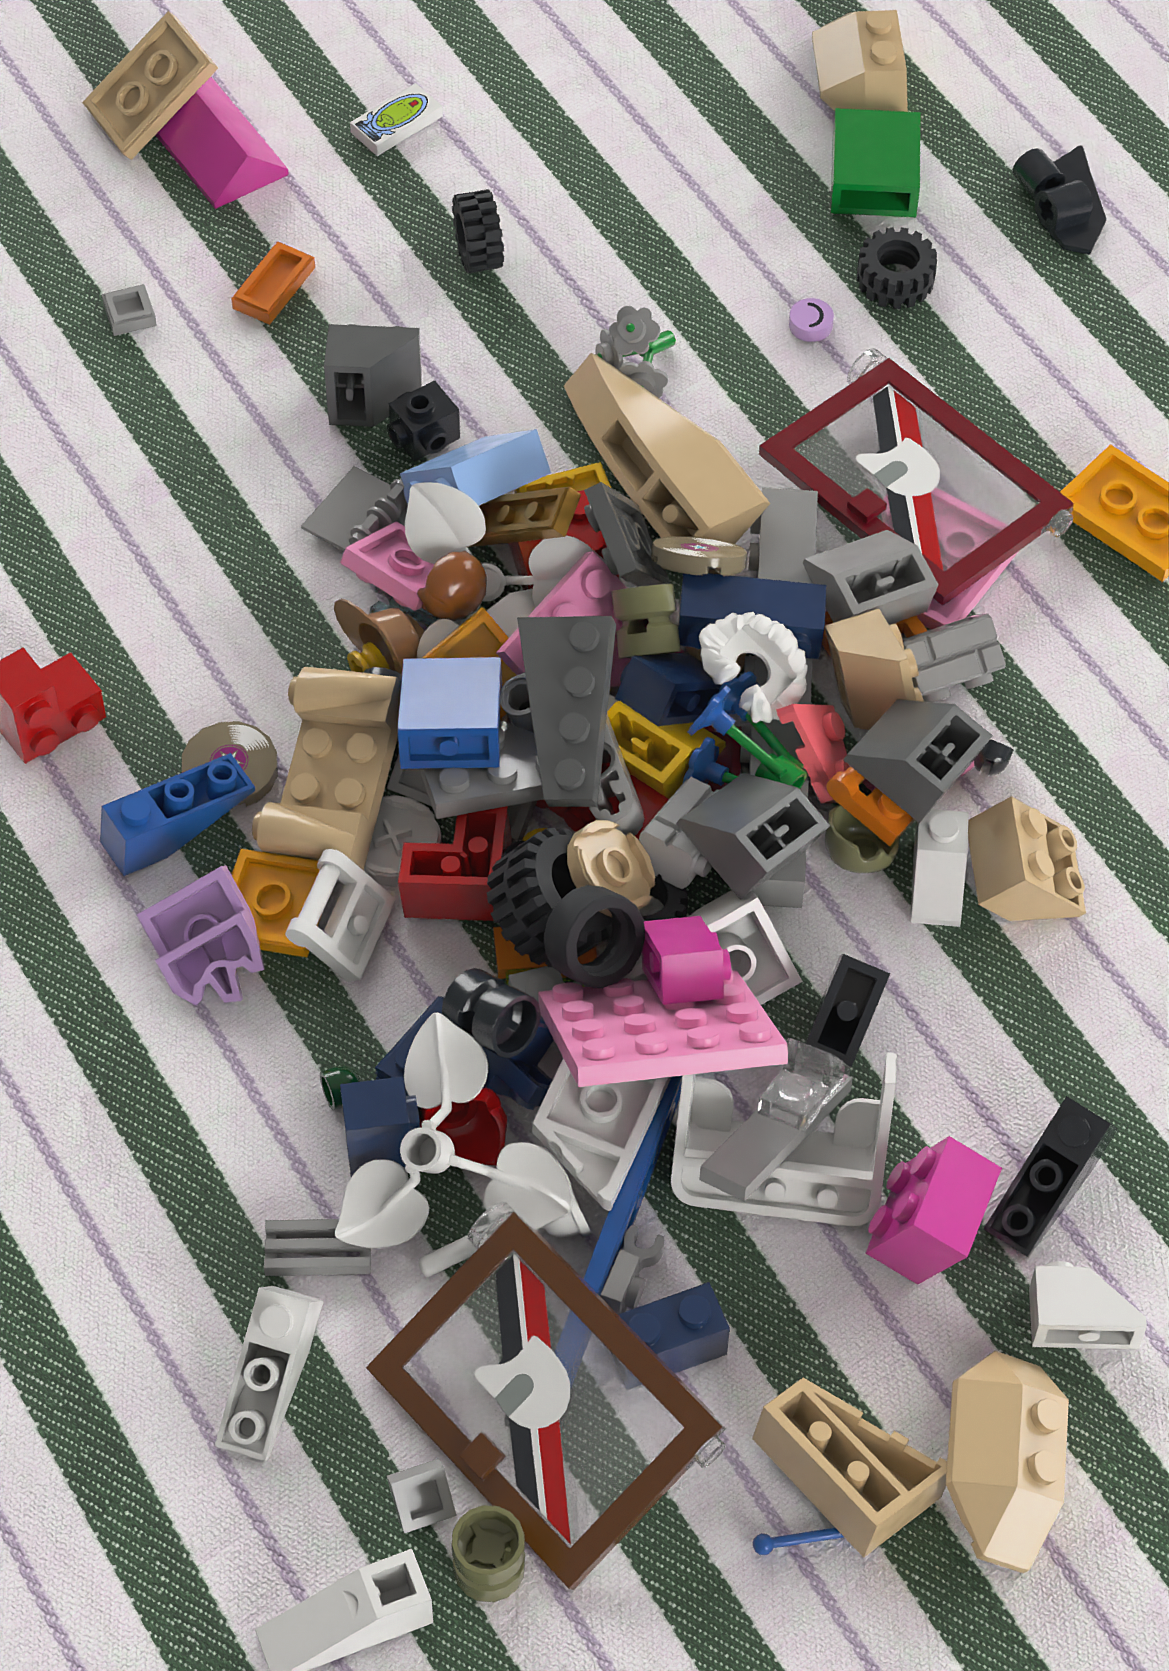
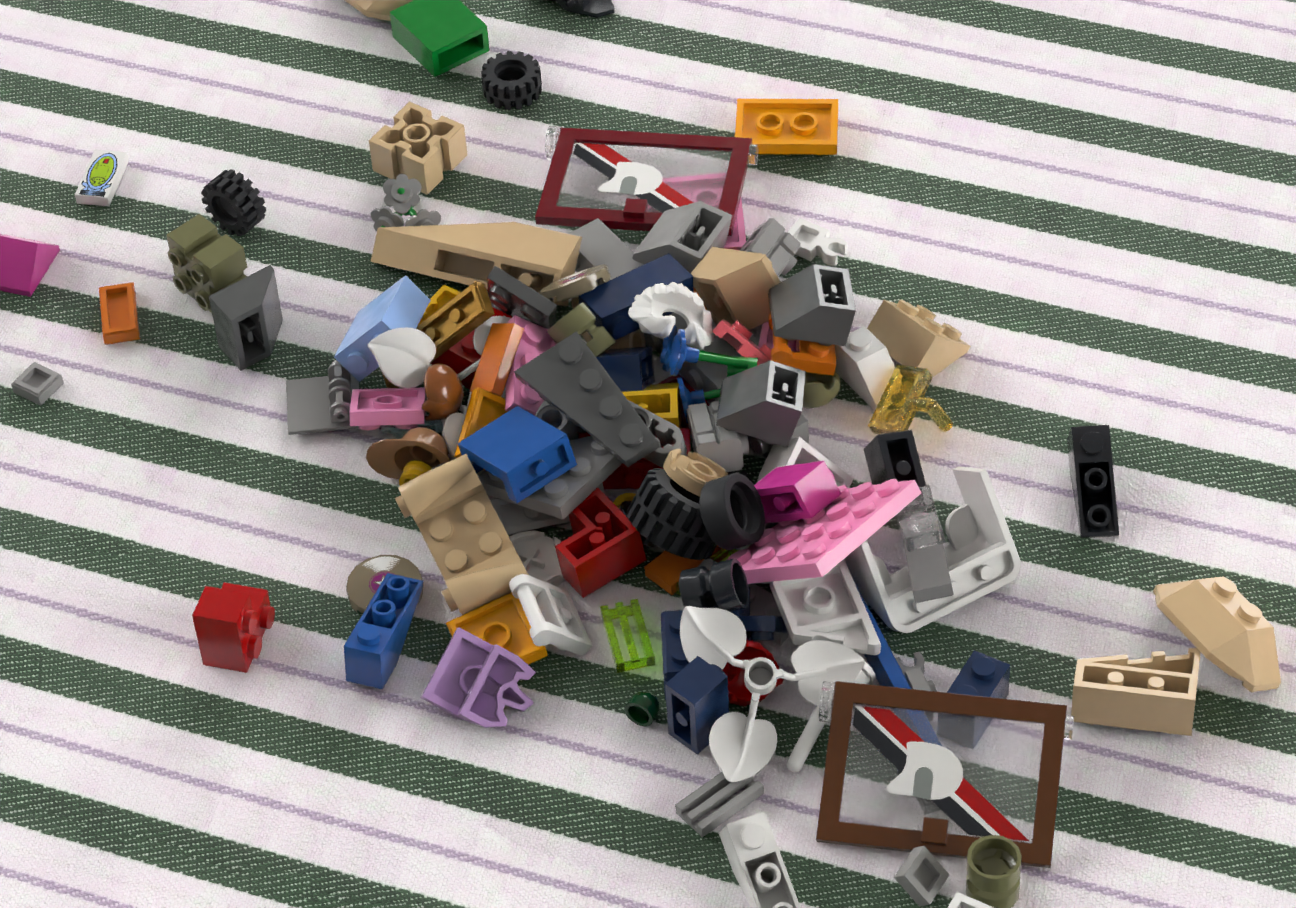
camera: 35 degrees left, 10 degrees down
(383, 278) = (204, 260): none -> olive brick
(422, 960) = (622, 612): none -> clear neon green tile
(423, 421) = (310, 325): black brick -> none
(534, 589) = (497, 357): none -> orange tile
(718, 286) = (418, 146): none -> tan brick
(764, 1544) = (1130, 769): blue hinge -> none
(811, 320) = (487, 138): lavender tile -> none
(932, 1210) = (1057, 533): dark pink brick -> none
(936, 930) = (903, 399): none -> clear yellow plate
(1030, 669) = (817, 241): none -> white plate
(1080, 1310) = (1178, 536): white slope -> none

